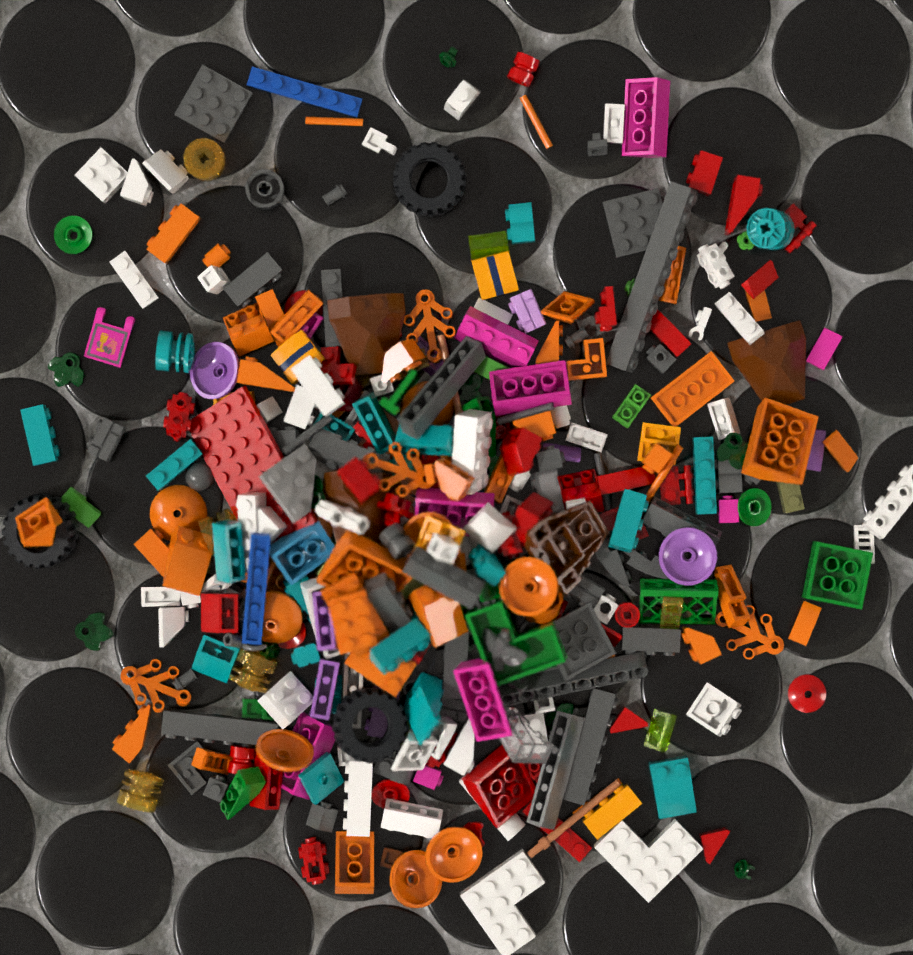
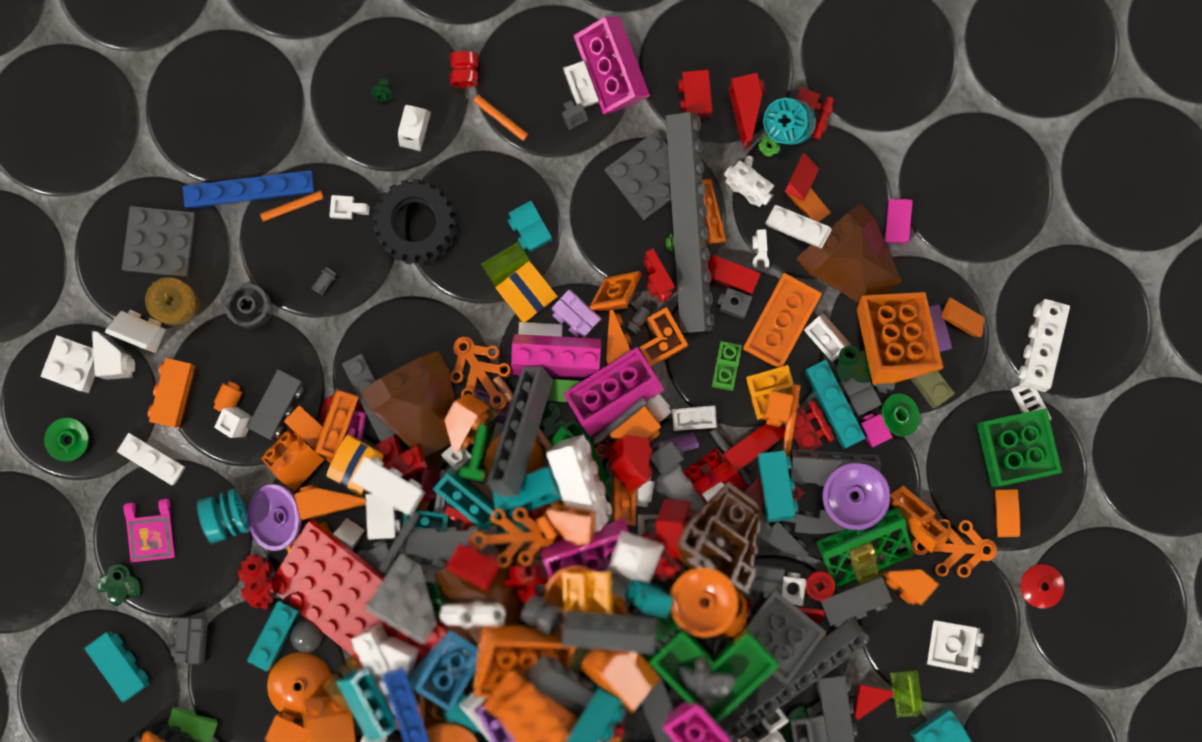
camera: 30 degrees left, 5 degrees down
(443, 548) = (595, 601): white brick -> none

